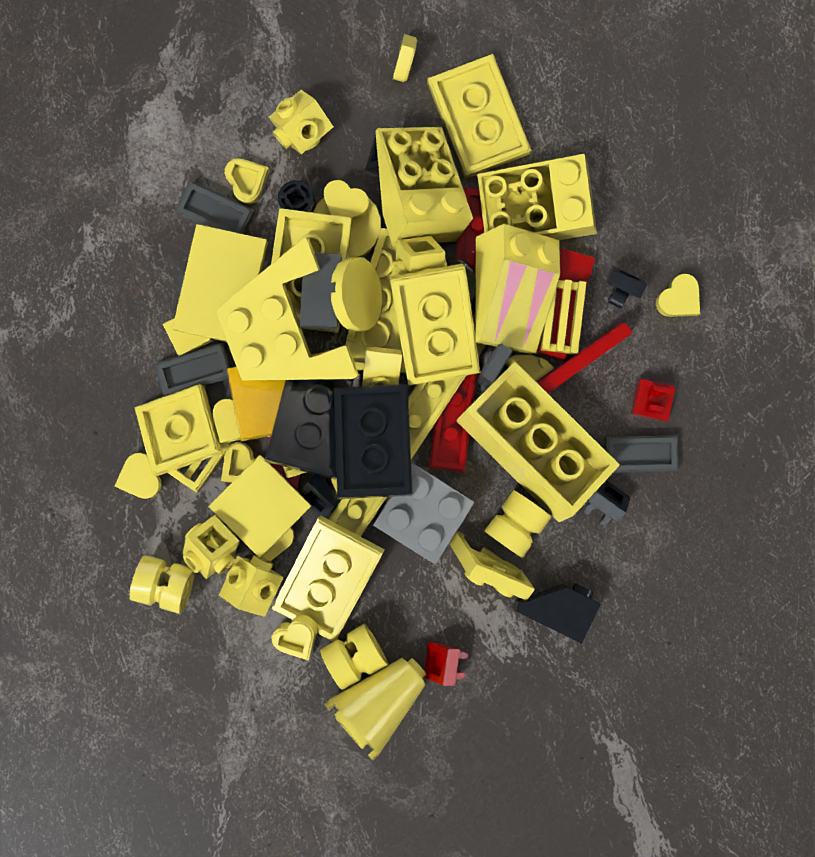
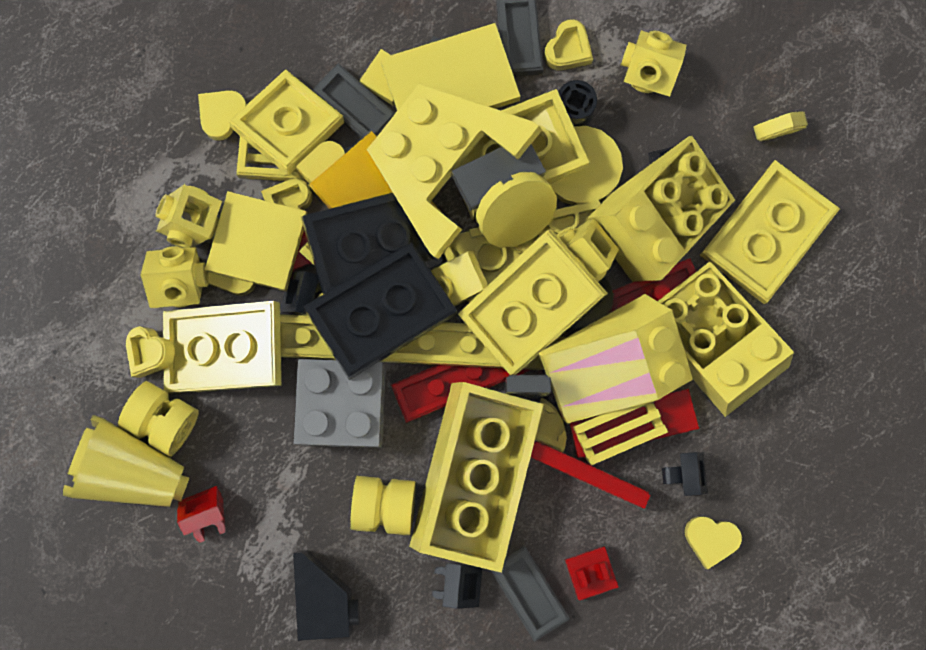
camera: 65 degrees right, 5 degrees down
(149, 583) = (127, 192): light yellow wheel -> none
(345, 201) = (603, 149): light yellow tile -> none
(490, 569) = (322, 504): light yellow wing -> none

